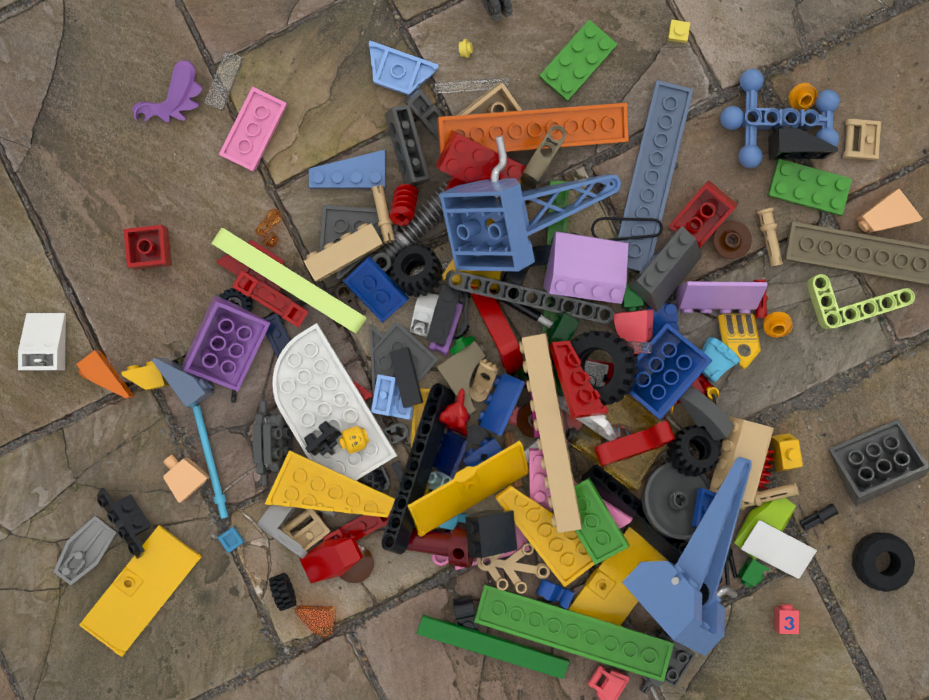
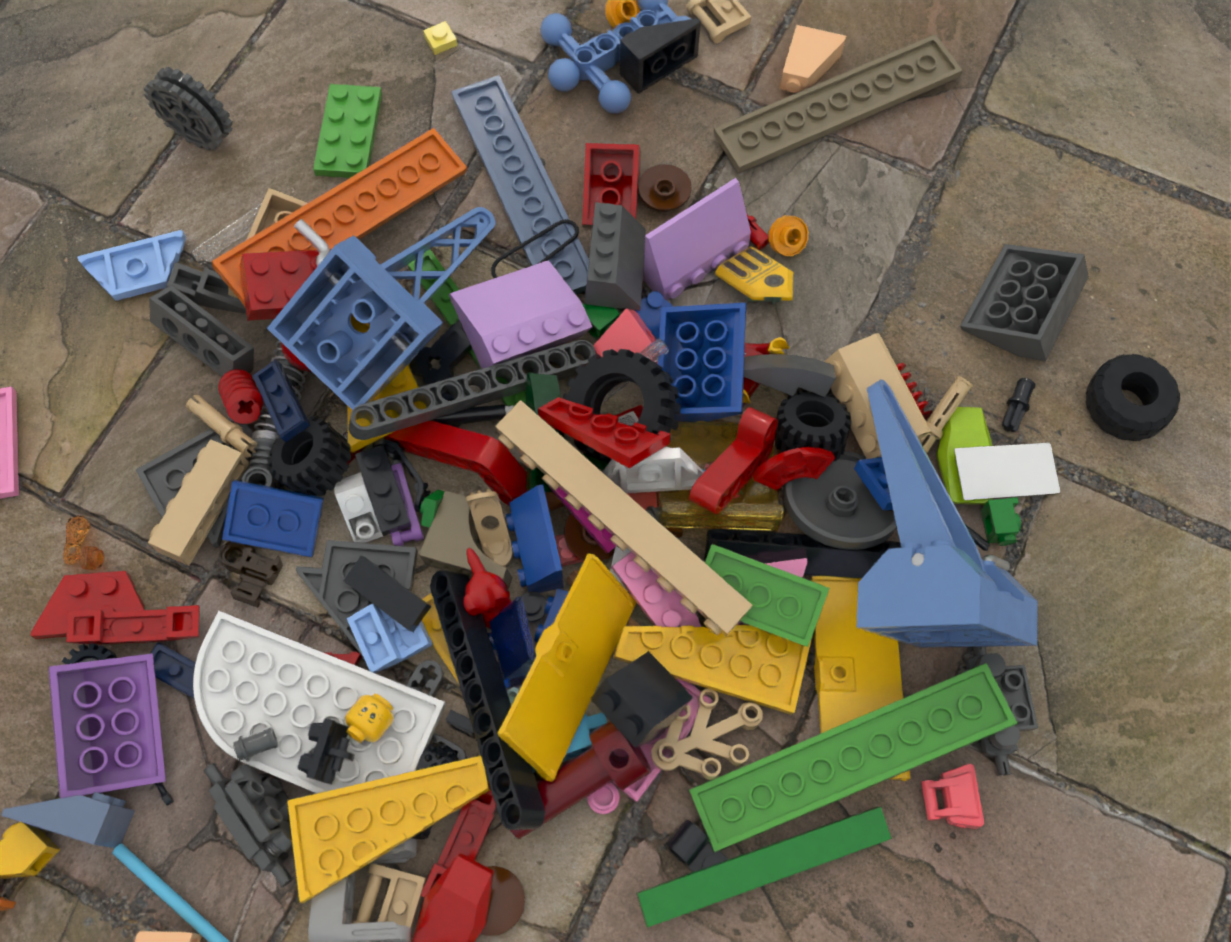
camera: 30 degrees left, 20 degrees down
(289, 280) = (144, 584): yellowish green beam -> none
(291, 409) = (255, 744): none -> dark grey pin
(351, 173) = (148, 416): medium blue wing -> none
(422, 227) = (281, 400): none -> dark blue tile
(465, 48) = (204, 195): light yellow plate -> none
(542, 158) = (373, 231): dark tan connector -> none
(554, 592) = (787, 730): blue leg -> none
(664, 466) = (793, 464): none -> red tile
(722, 358) = (759, 309): medium azure piece -> none
(768, 228) = (694, 151): tan pin -> none
(786, 619) = (1089, 545): coral brick -> none
(787, 452) = (923, 358): yellow torso -> none
(809, 187) = (704, 89): bright green plate -> none
(856, 309) = (840, 189): yellowish green beam -> none

